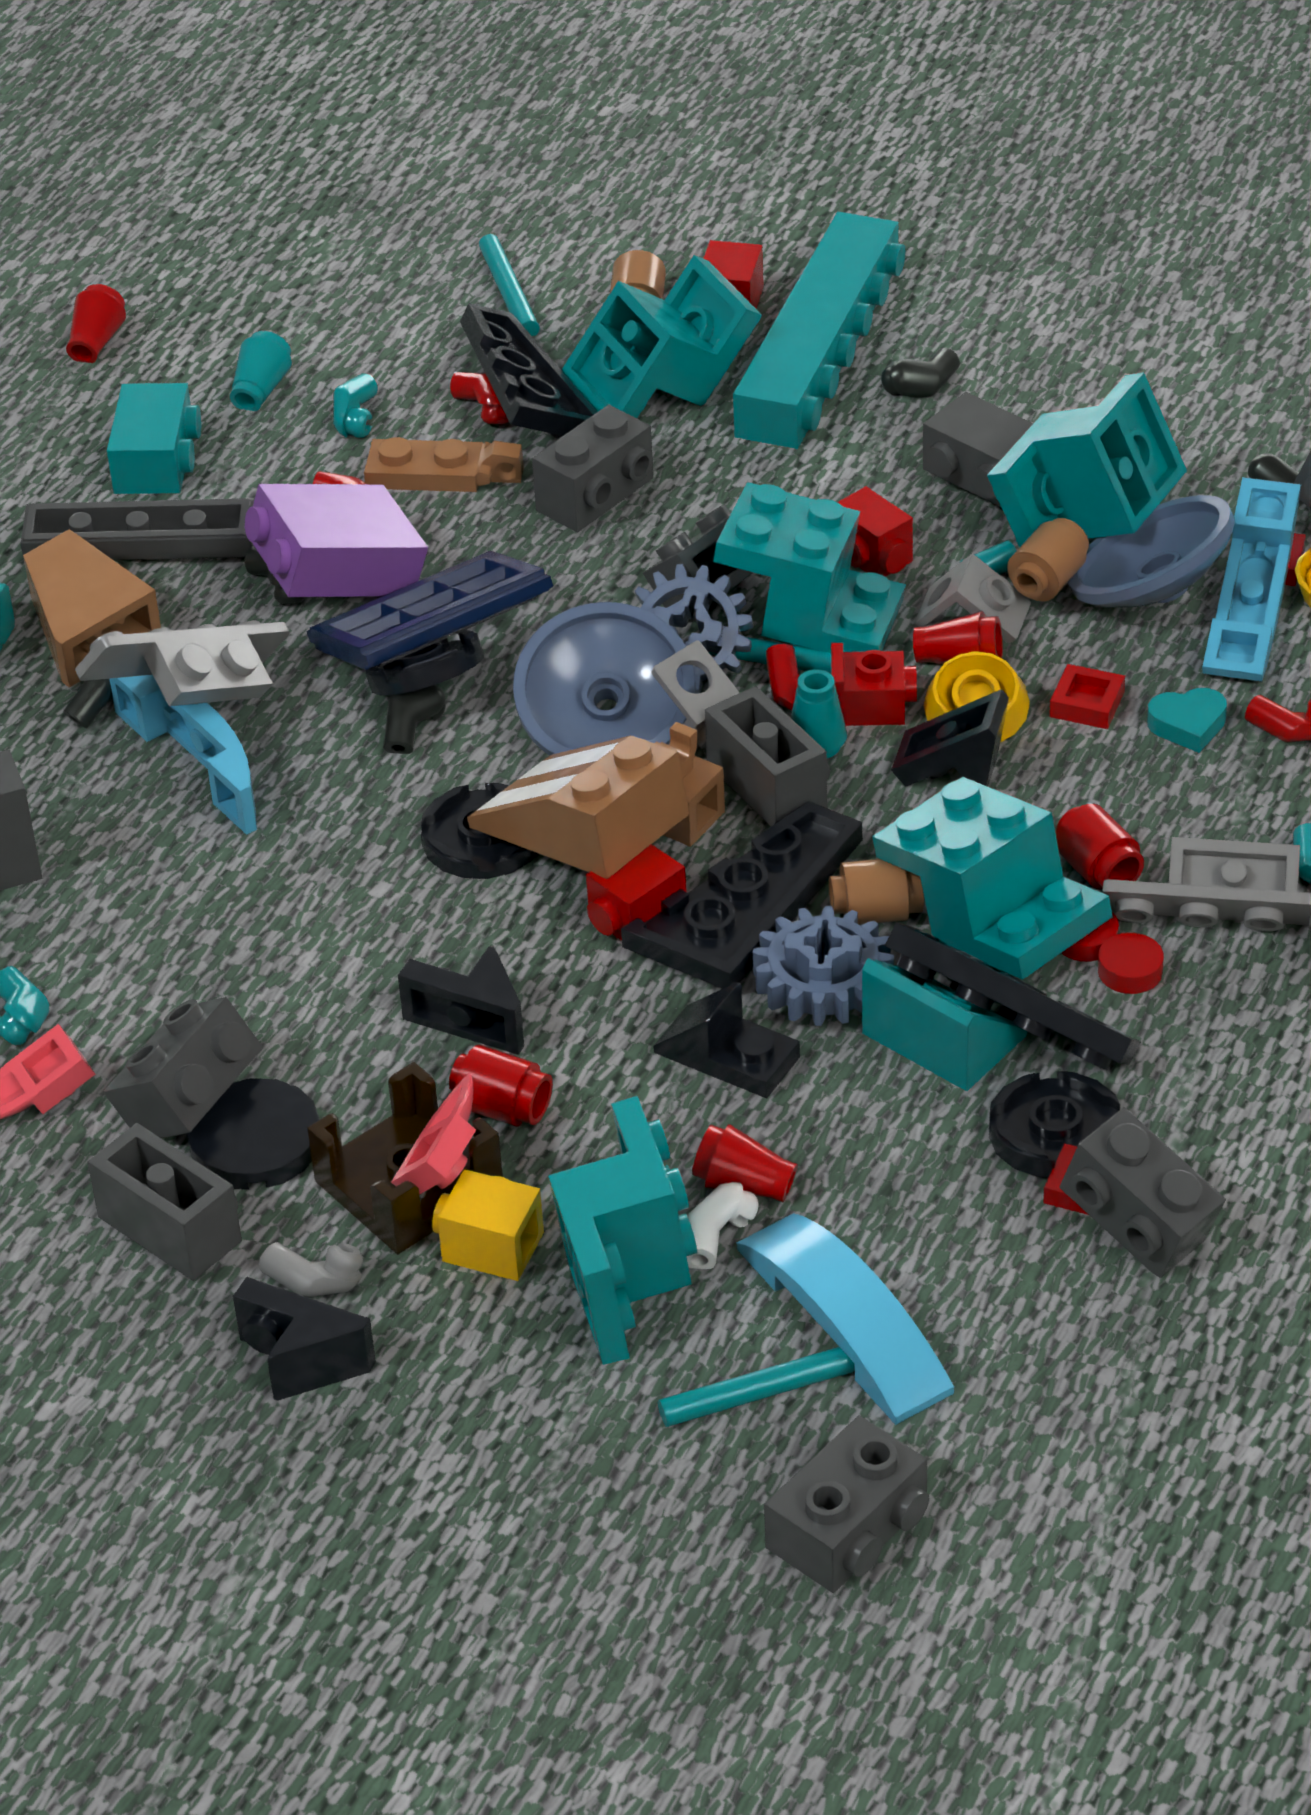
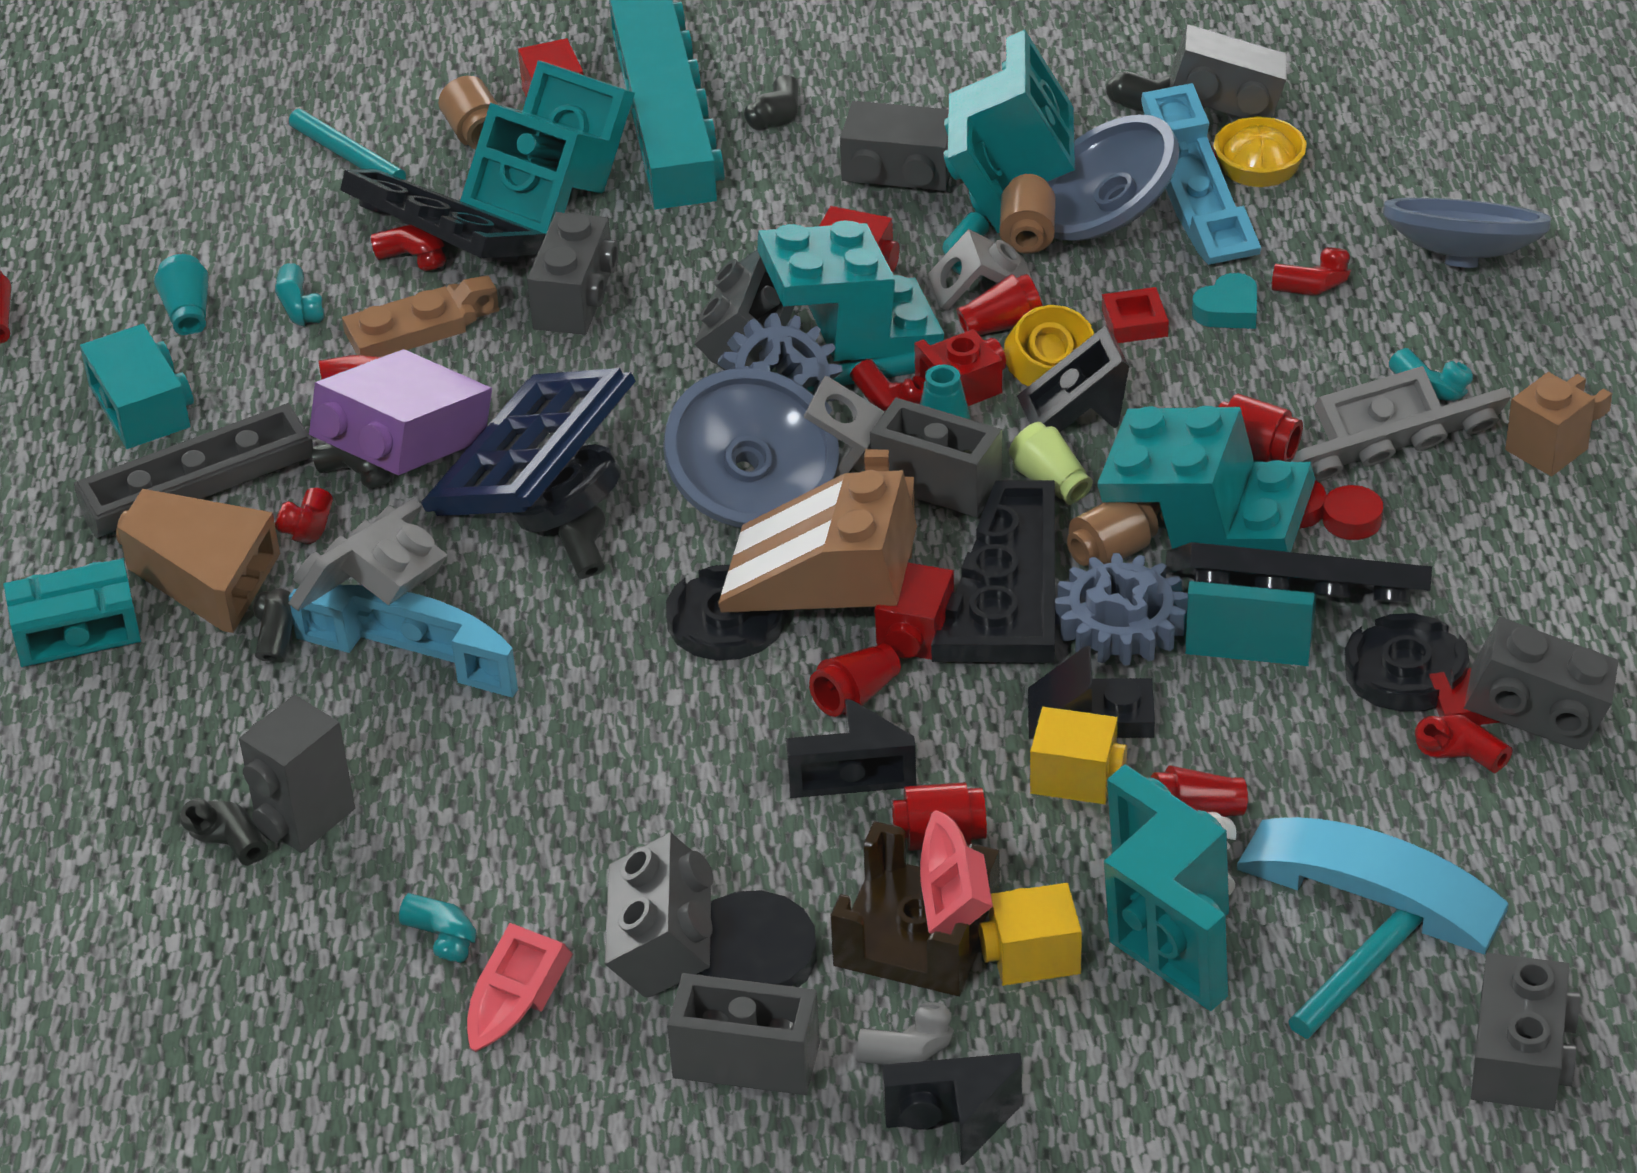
camera: 30 degrees left, 0 degrees up
(191, 610) = (308, 521): none -> red arm
(535, 932) = (853, 677): none -> red cone
(668, 1077) = (1074, 755): none -> yellow brick
(875, 795) = (1044, 455): none -> yellowish green cone
(1041, 1215) = (1460, 737): none -> red arm

